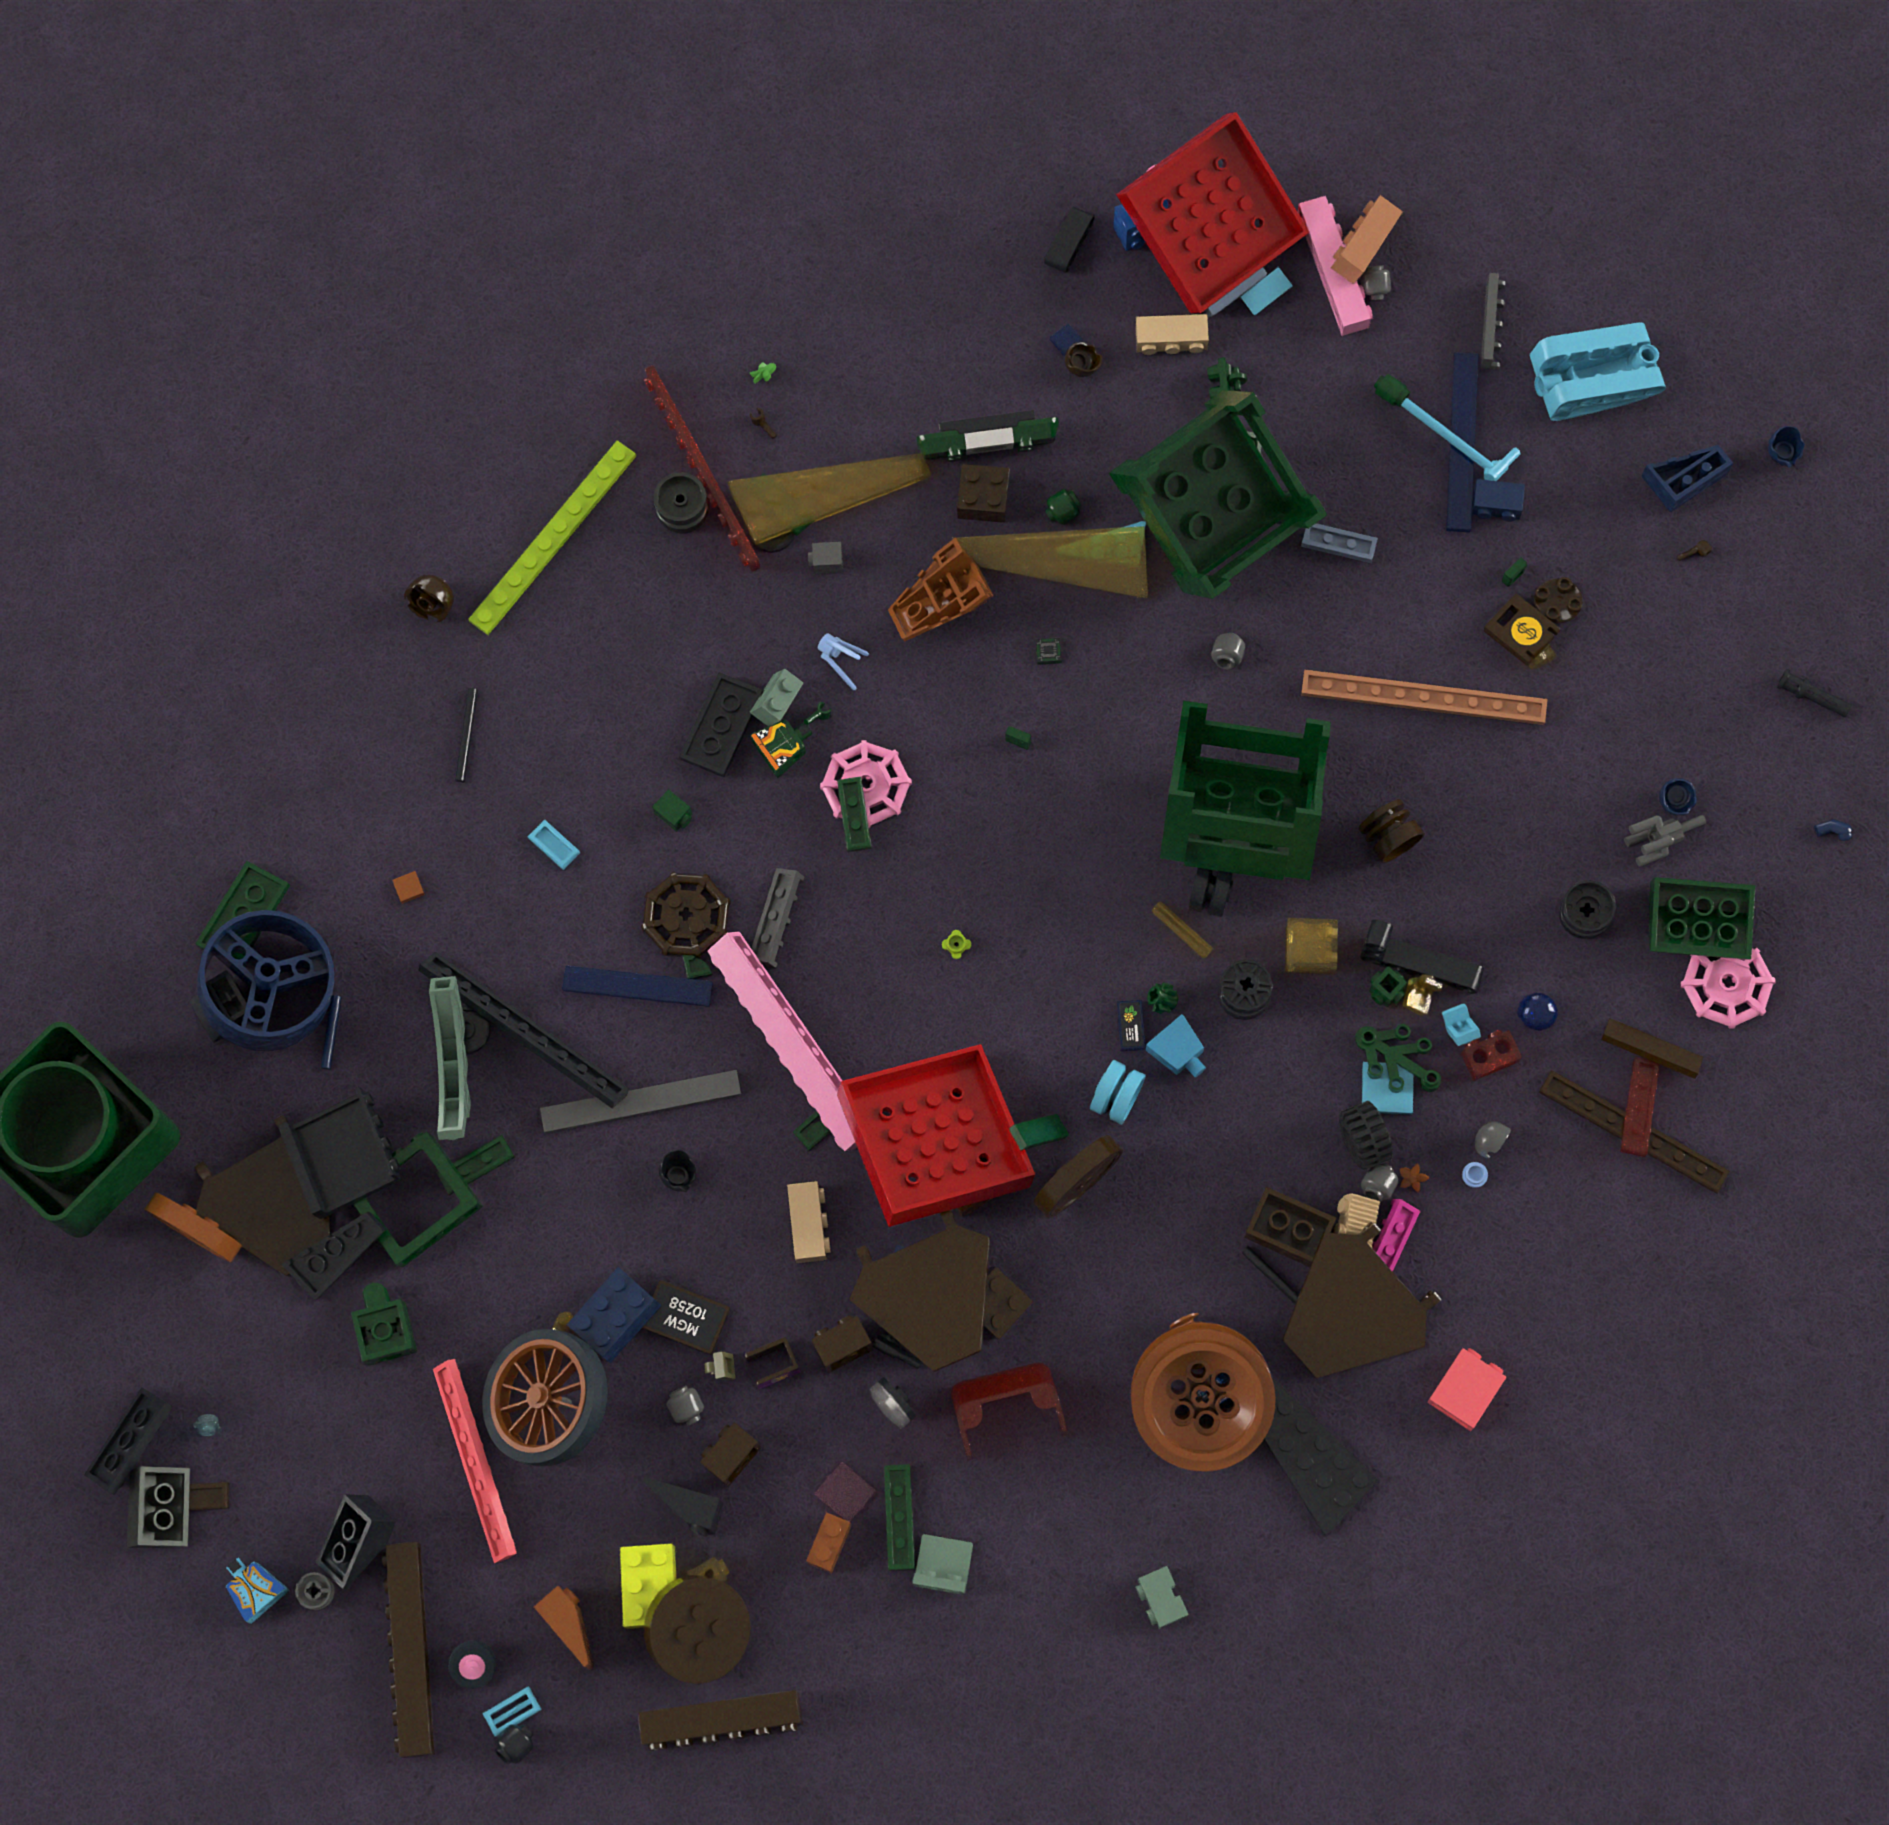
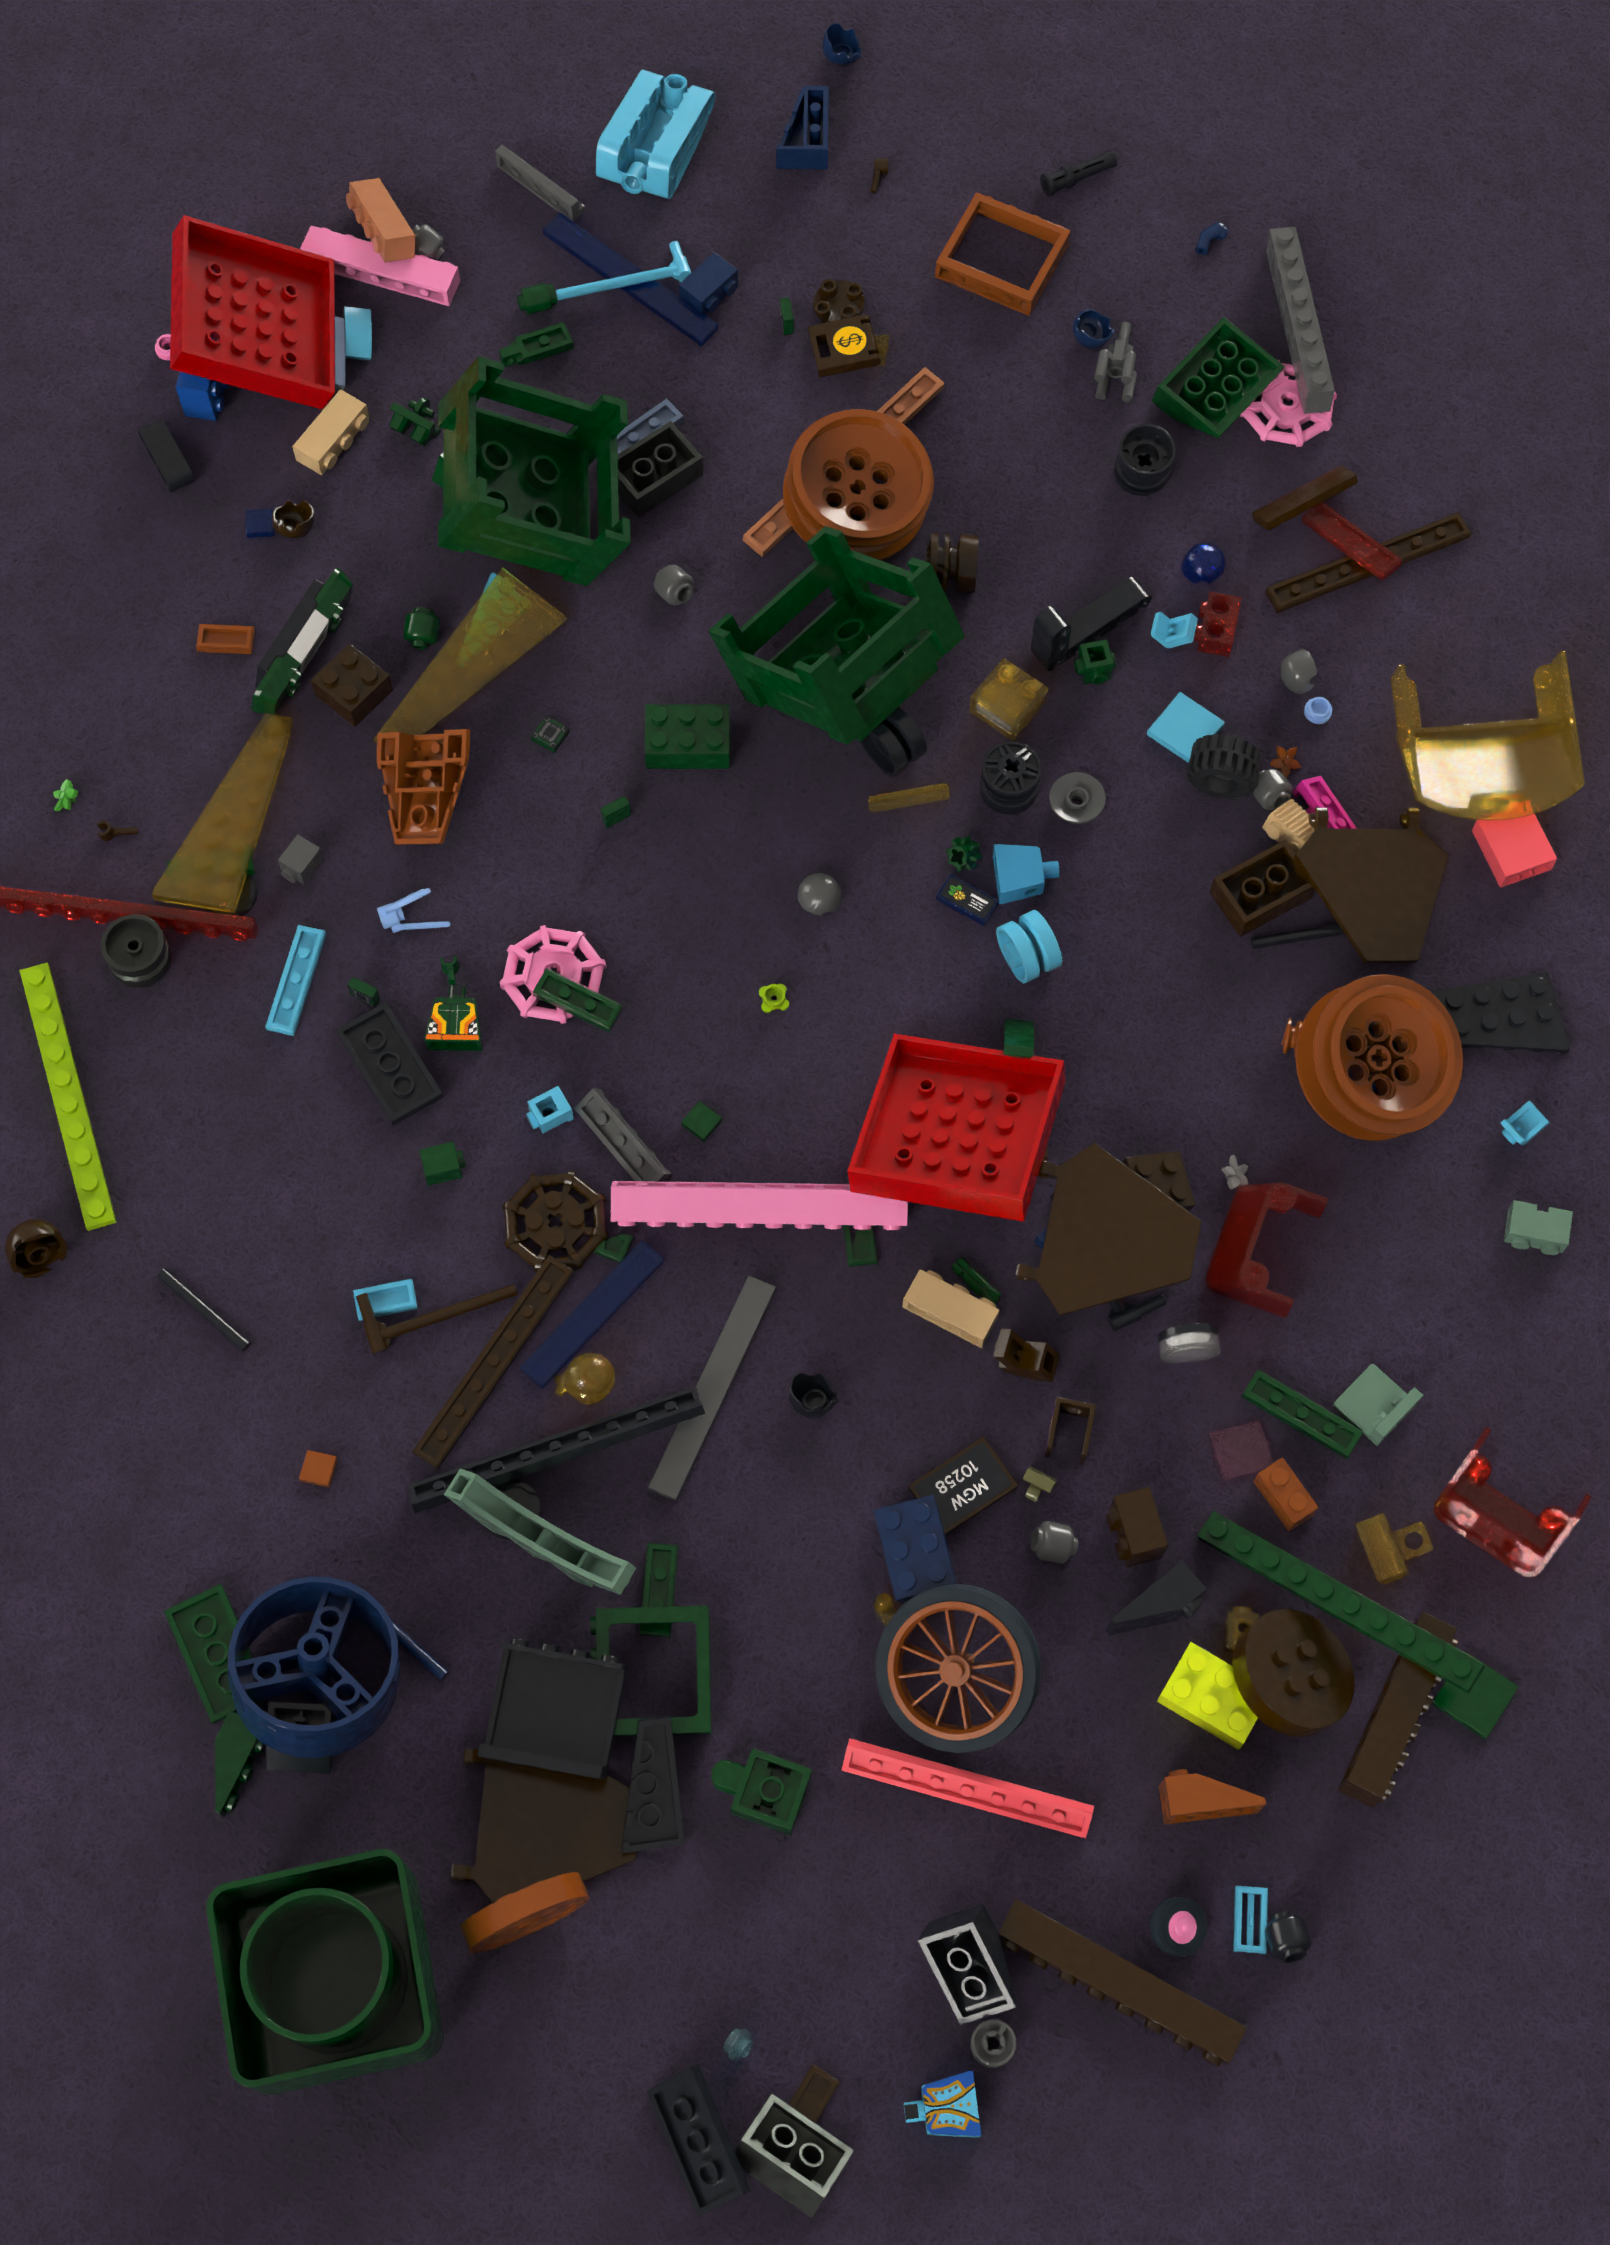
camera: 60 degrees left, 5 degrees down
(176, 977) = (233, 1761): none -> dark green slope
(525, 859) = (379, 1335): none -> dark brown bar
(558, 945) = (493, 1362): none -> dark brown tile
(587, 1015) = (587, 1378): none -> clear yellow hat
(739, 620) = (296, 980): none -> medium azure tile
(756, 845) = (549, 1101): none -> medium azure brick
(760, 670) = (364, 992): none -> dark green tile
(767, 1629) = (1342, 1602): none -> dark green plate
(775, 1769) = (1482, 1705): none -> dark green tile
(776, 697) = (406, 991): sand green brick -> none
(805, 1296) = (1025, 1358): none -> dark brown brick
(828, 960) = (701, 1121): none -> dark green tile
(838, 1639) = (1388, 1549): none -> clear yellow piece
(841, 1227) = (975, 1280): none -> dark green axle
(842, 1343) = (1099, 1351): dark brown brick -> none
(915, 1705) = (1498, 1522): none -> clear red windscreen
(959, 384) = (225, 639): none -> dark orange tile
(1051, 1354) = (1235, 1173): none -> light grey plant
(1059, 921) = (819, 894): none -> dark grey hair
(1078, 1176) = (1092, 1026): dark brown brick -> none
(1113, 744) = (687, 736): none -> dark green brick
(1237, 1537) = (1524, 1124): none -> medium azure bracket
(1271, 1036) = (1081, 787): none -> dark grey dish
(1310, 571) = (657, 468): none -> pearl dark grey brick
(1354, 419) = (537, 345): none -> dark green hinge
(1394, 1056) = (1163, 702): dark green plant -> none
(1415, 682) = (882, 451): none -> dark orange wheel
(1420, 993) = (1122, 647): clear yellow bracket -> none
(1517, 1331) = (1493, 766): none -> clear yellow windscreen
(1655, 695) = (988, 285): none -> dark orange window
(1803, 943) = (1300, 320): none -> dark grey brick

